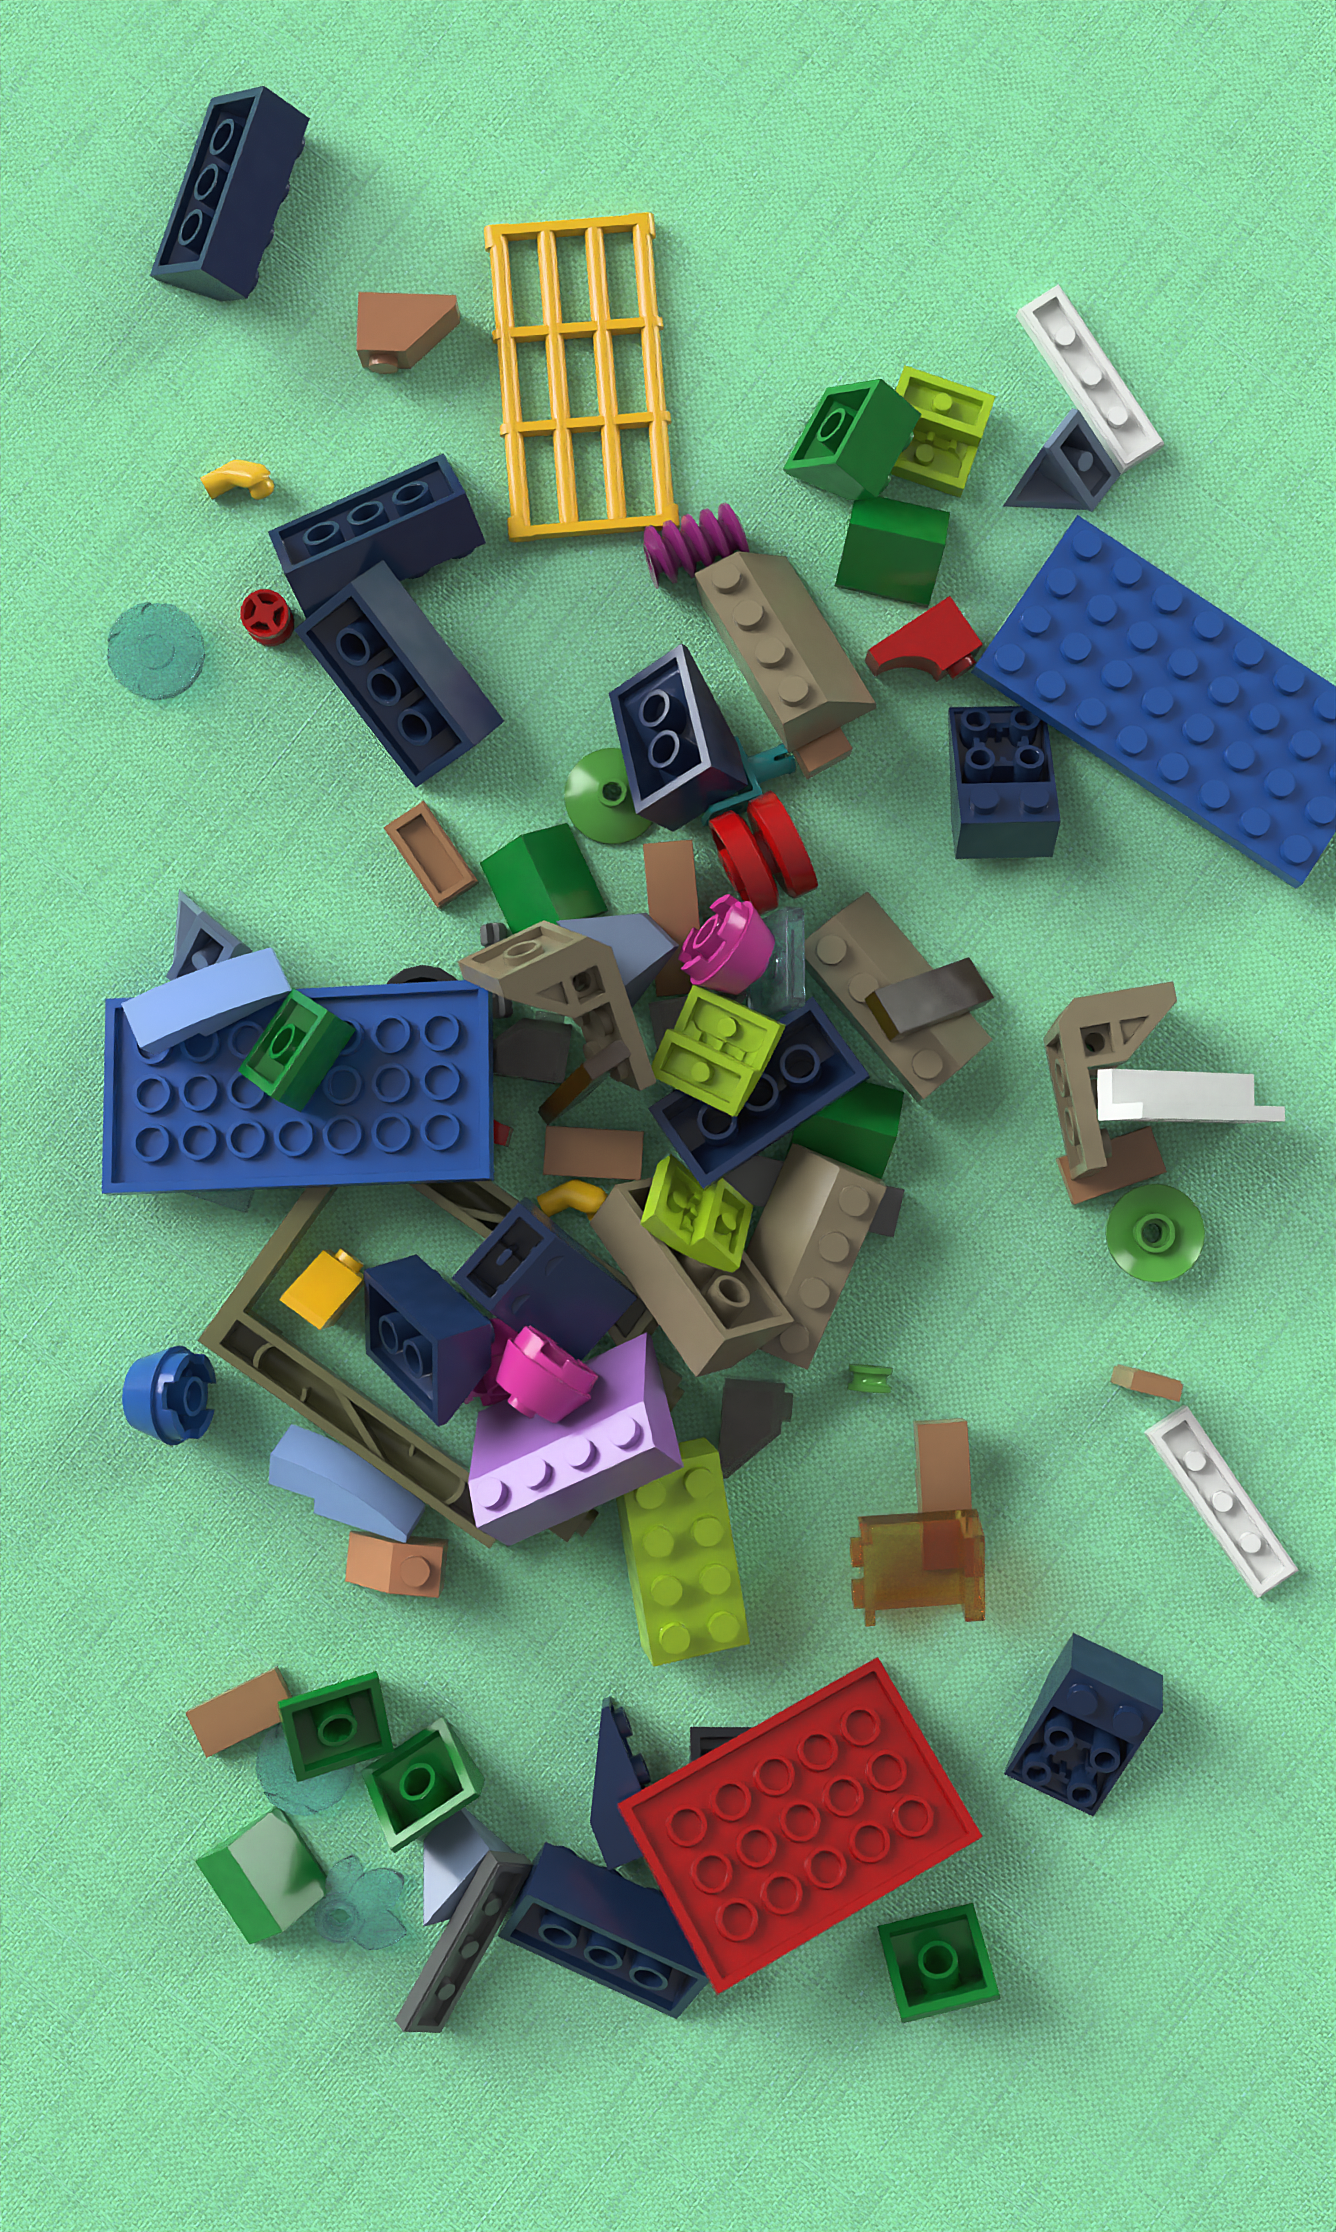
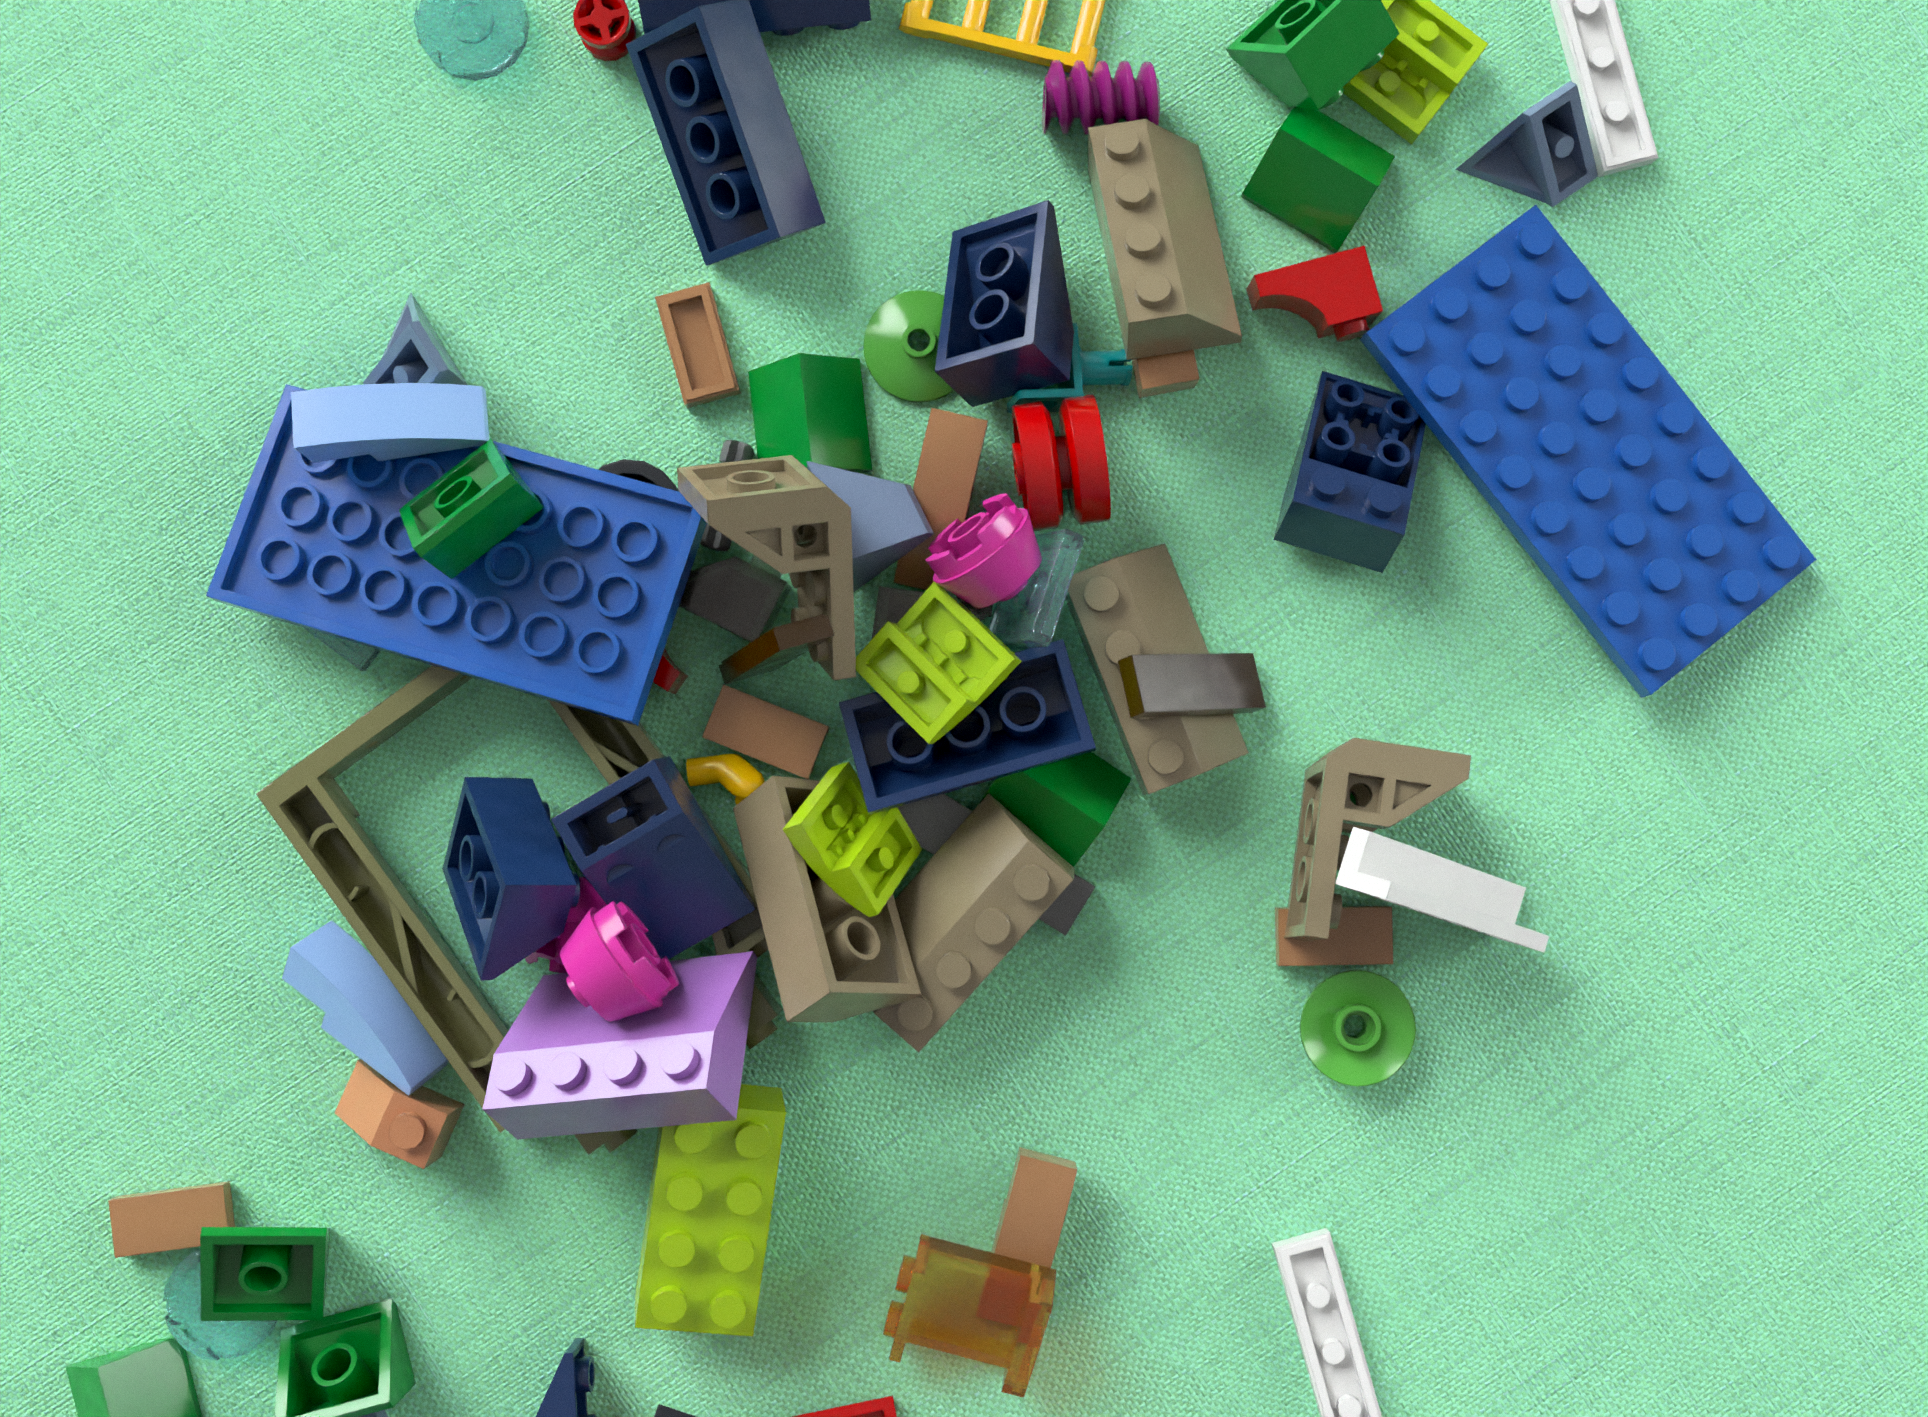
camera: 20 degrees right, 0 degrees up
(169, 1395) = (206, 844): blue cone -> none
(326, 1288) = (415, 783): yellow slope -> none
(750, 1418) = (838, 1084): clear smoke slope -> none
(869, 1378) = (987, 1083): bright green bush -> none
(1147, 1382) = (1293, 1193): medium nougat tile -> none

